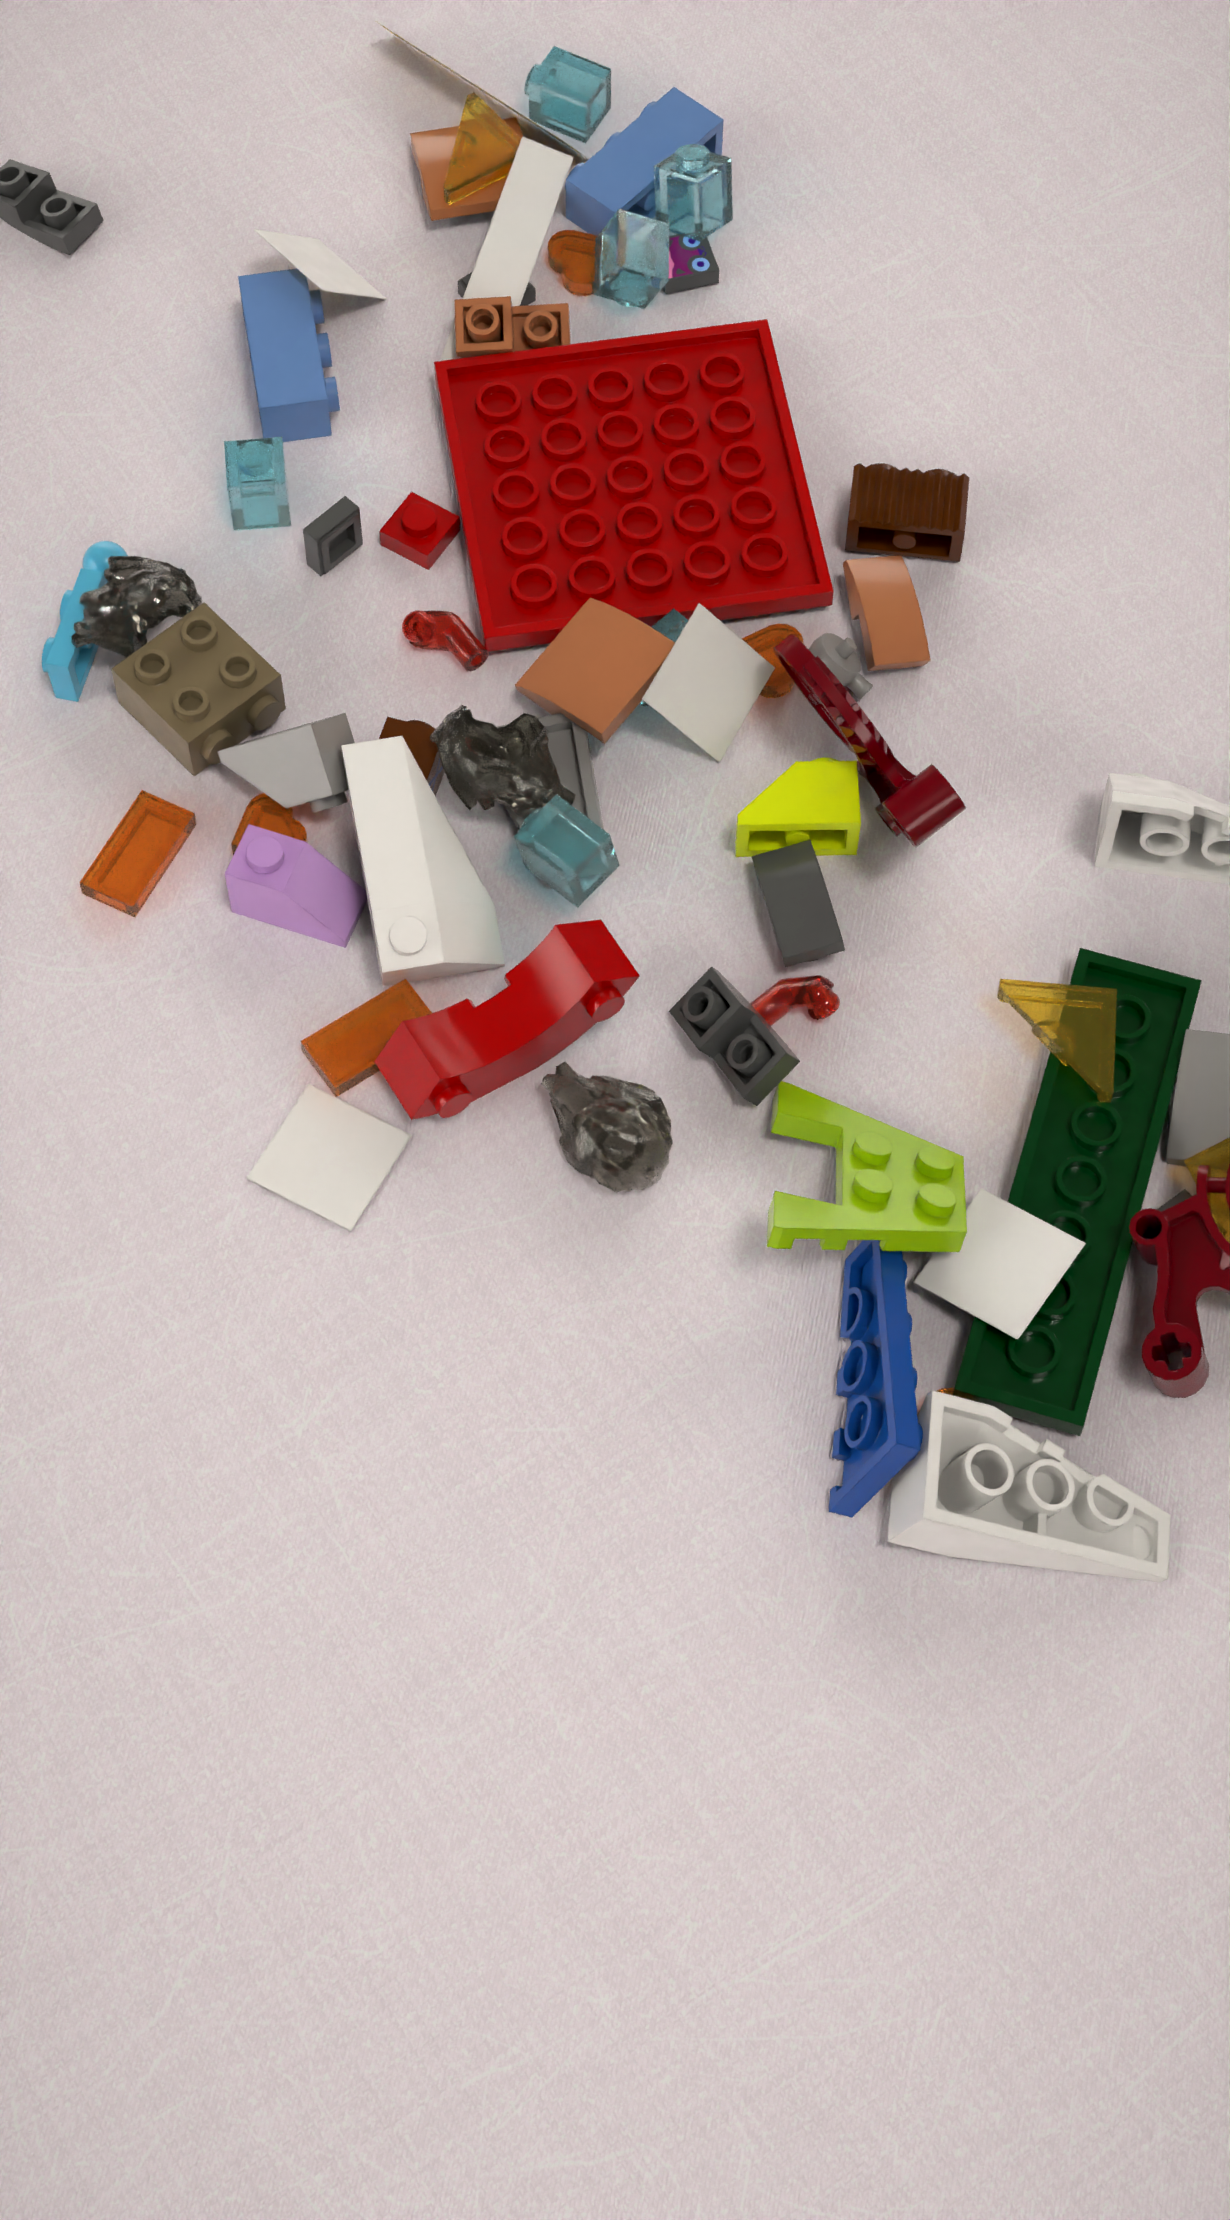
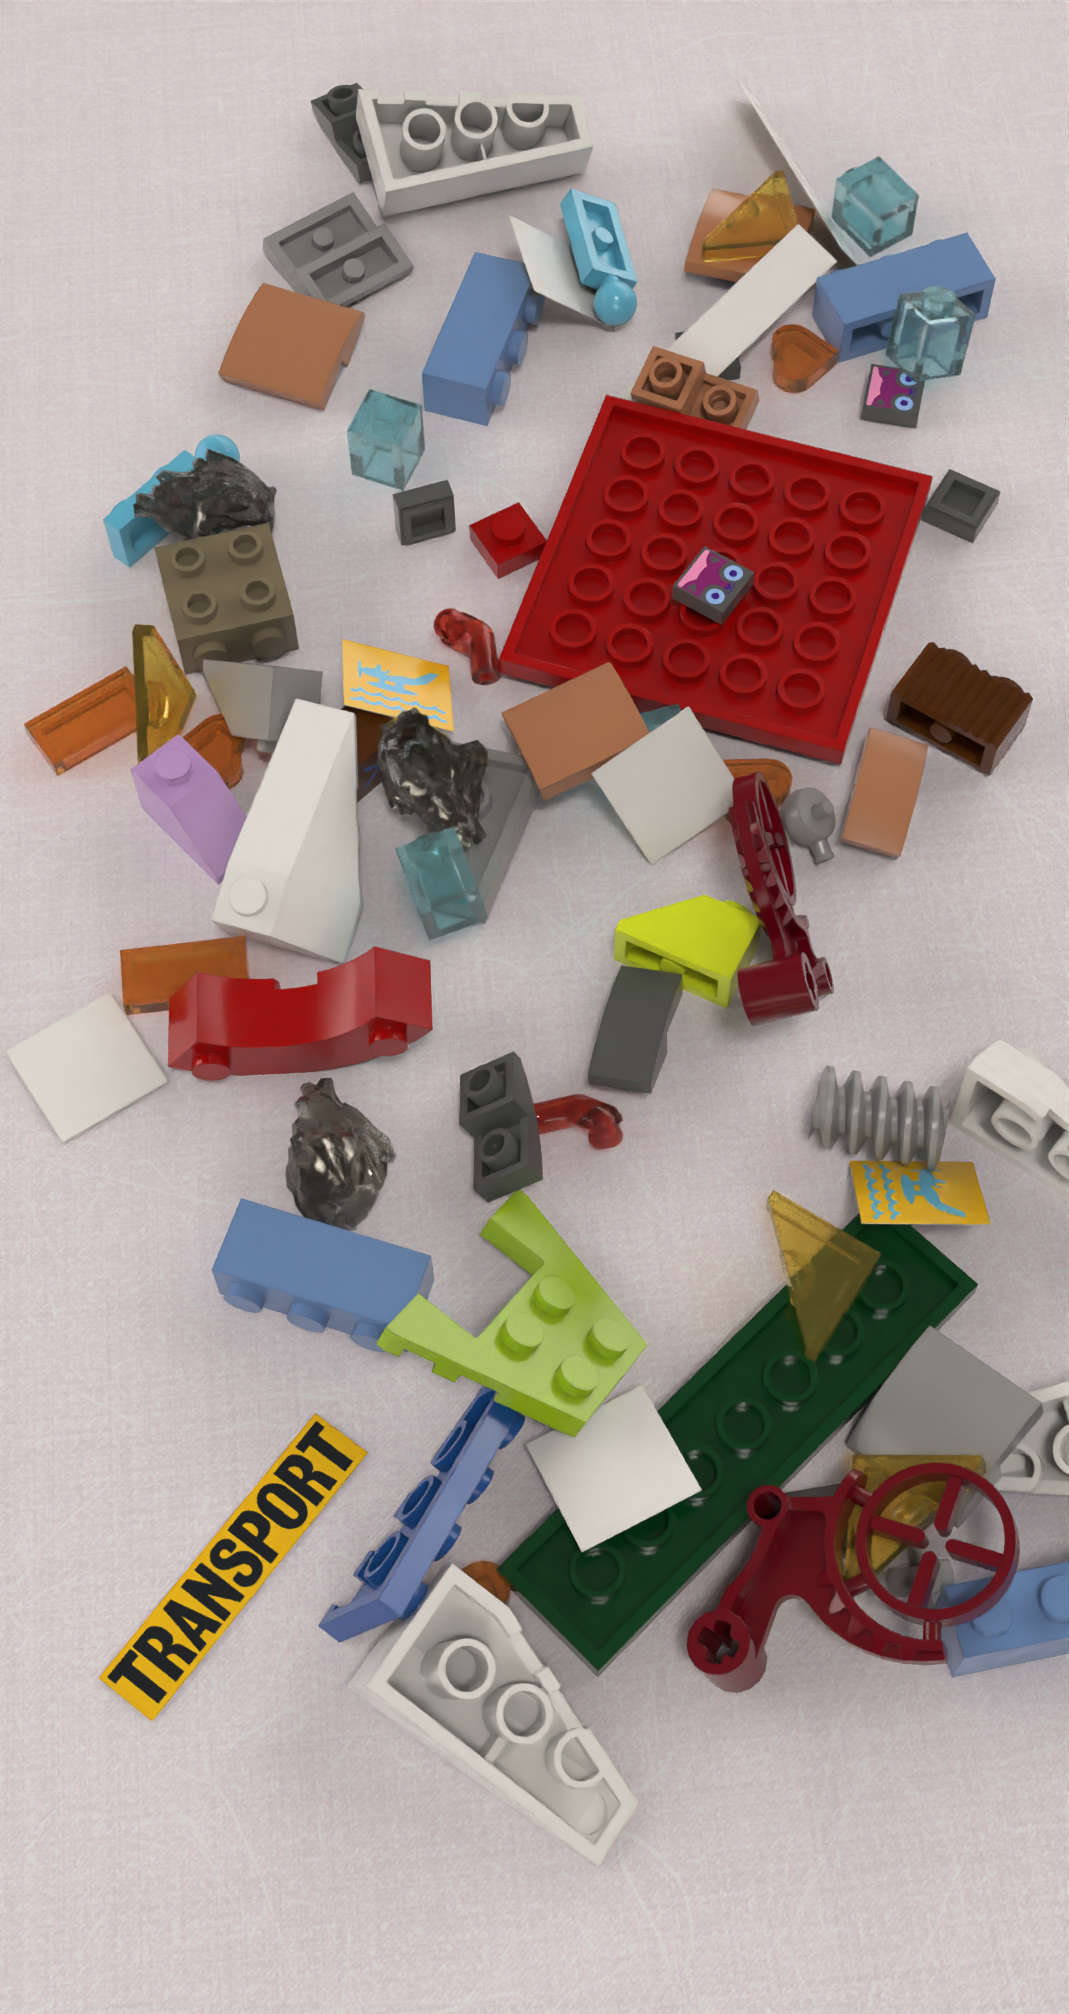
camera: 30 degrees right, 0 degrees up
(94, 333) = (337, 253): none -> light grey slope
(107, 433) = (291, 346): none -> nougat slope
(152, 186) = (467, 145): none -> white wedge
(201, 804) = (161, 691): none -> clear yellow tile
(348, 235) = (601, 255): none -> medium azure plate
(406, 698) = (395, 683): none -> yellow sticker
(631, 259) = (838, 373): clear light blue brick -> none
(638, 493) = (713, 585): none -> tile
(662, 1228) = (317, 1273): none -> medium blue brick
(725, 1502) = (232, 1567): none -> sticker
(801, 336) = (961, 506): none -> dark grey tile
(1043, 880) = (880, 1117): none -> light grey piece
(1111, 929) = (915, 1195): none -> yellow sticker

